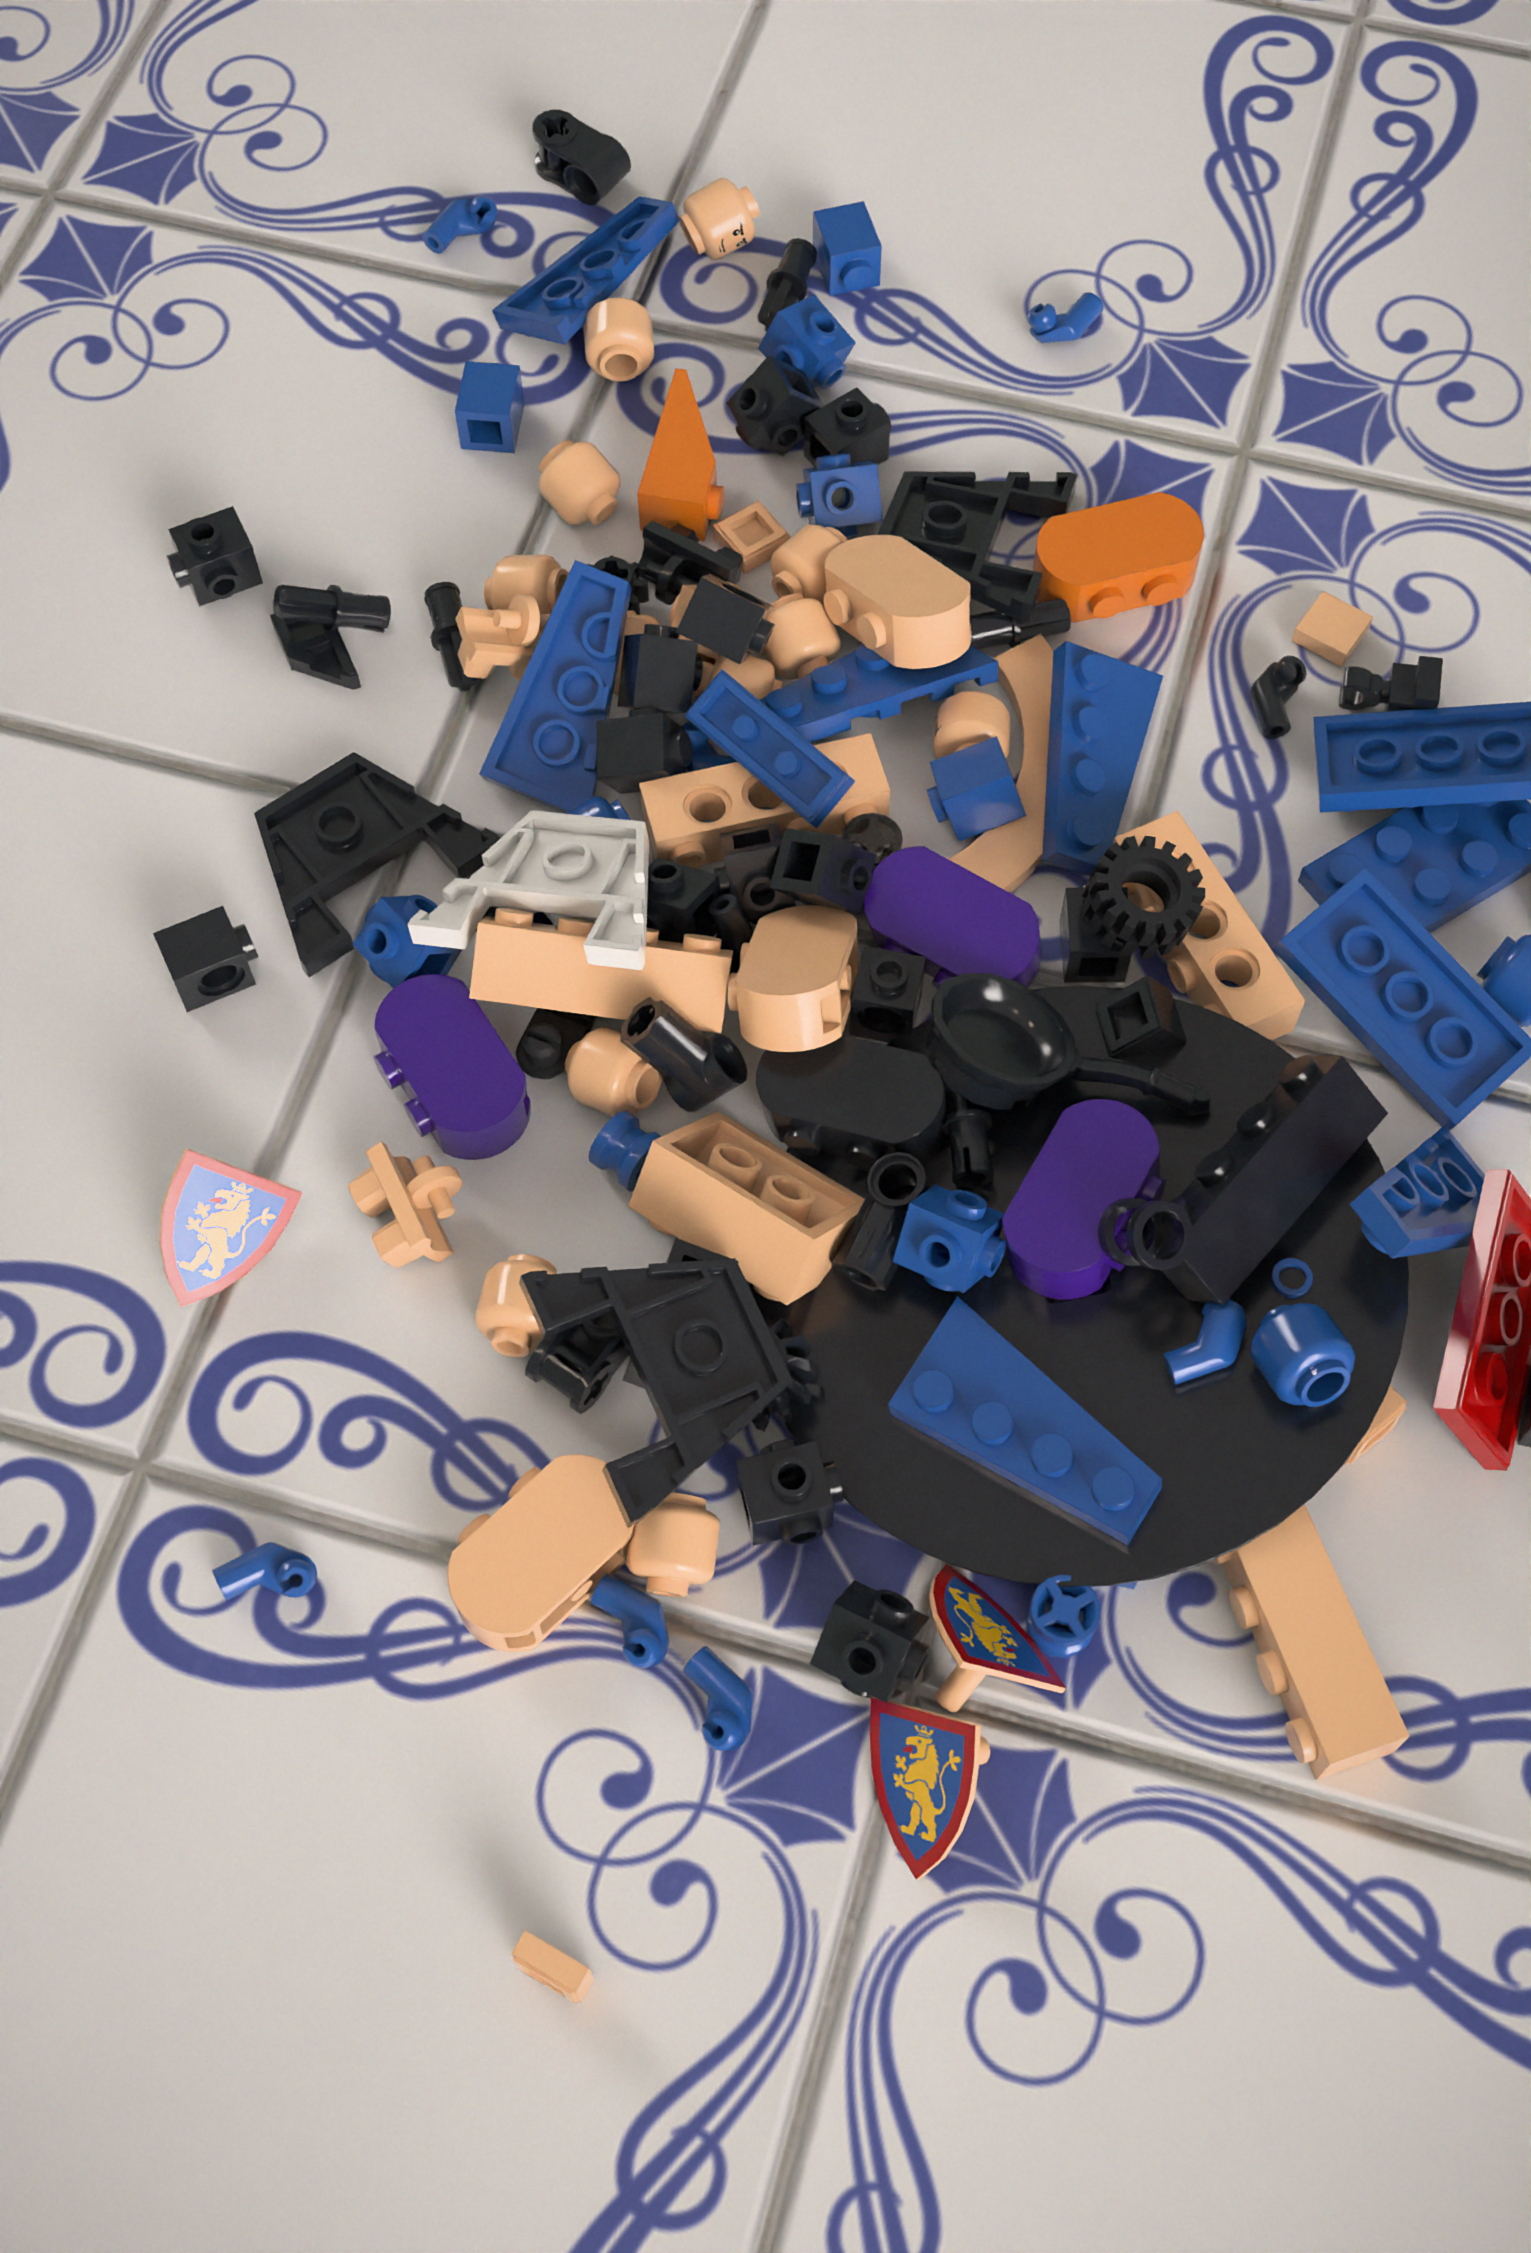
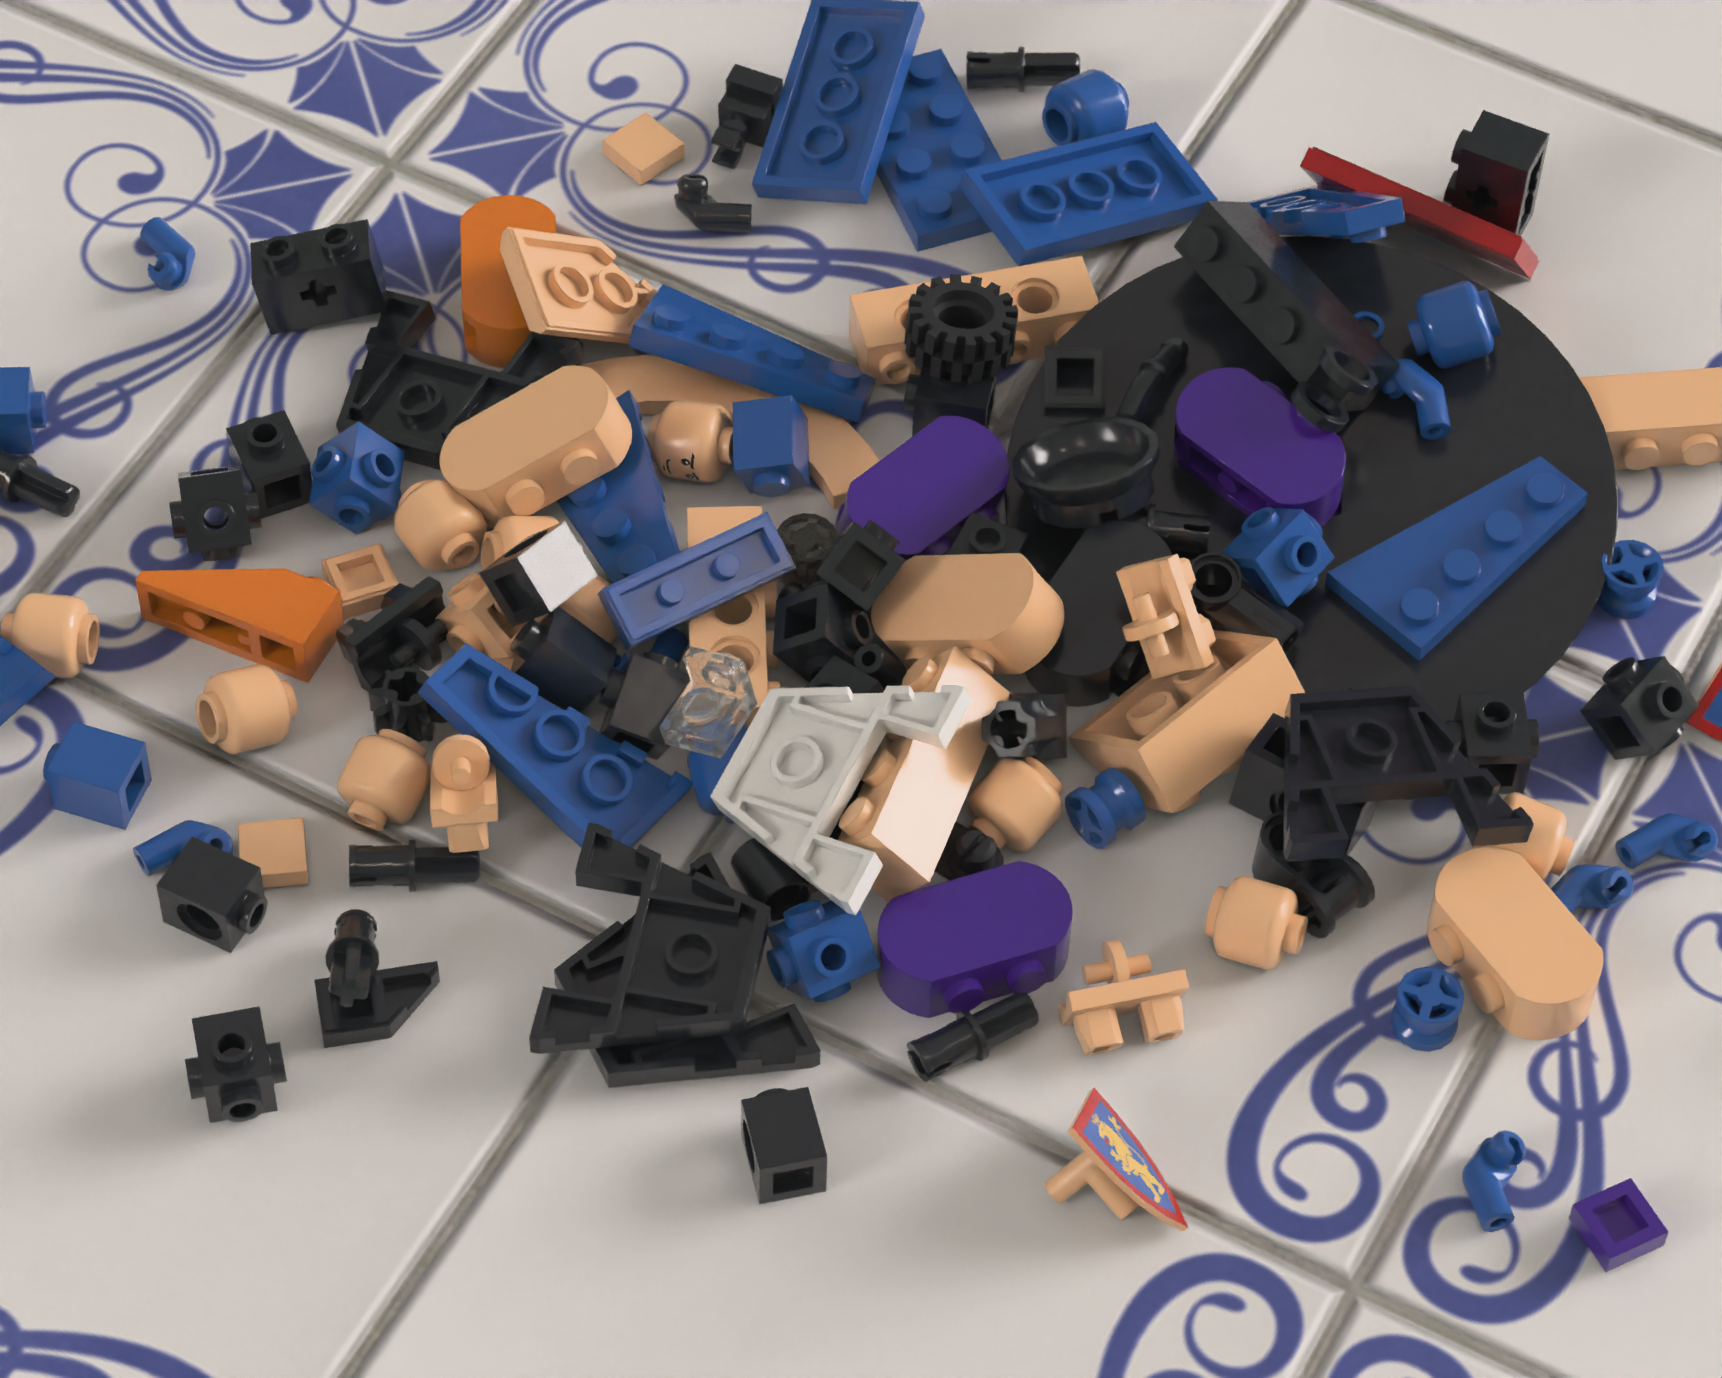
camera: 80 degrees left, 10 degrees down
(224, 1699) = (1618, 1225): none -> dark purple plate
(354, 1088) = (971, 1035): none -> black axle
(372, 834) = (685, 961): none -> black wing
(387, 506) = (212, 895): none -> black brick
(445, 484) = (165, 847): none -> blue arm
(449, 543) = (277, 849): none -> light nougat tile
(450, 1465) = (1416, 997): none -> blue wheel
(623, 787) = (711, 704): none -> clear bracket
(809, 340) = (136, 465): blue brick -> none
(812, 1160) = (1166, 616): none -> light nougat hips
(982, 1641) = (1654, 622): shield -> none
(1058, 413) = (318, 277): none -> black brick
(1104, 590) = (572, 286): none -> light nougat tile

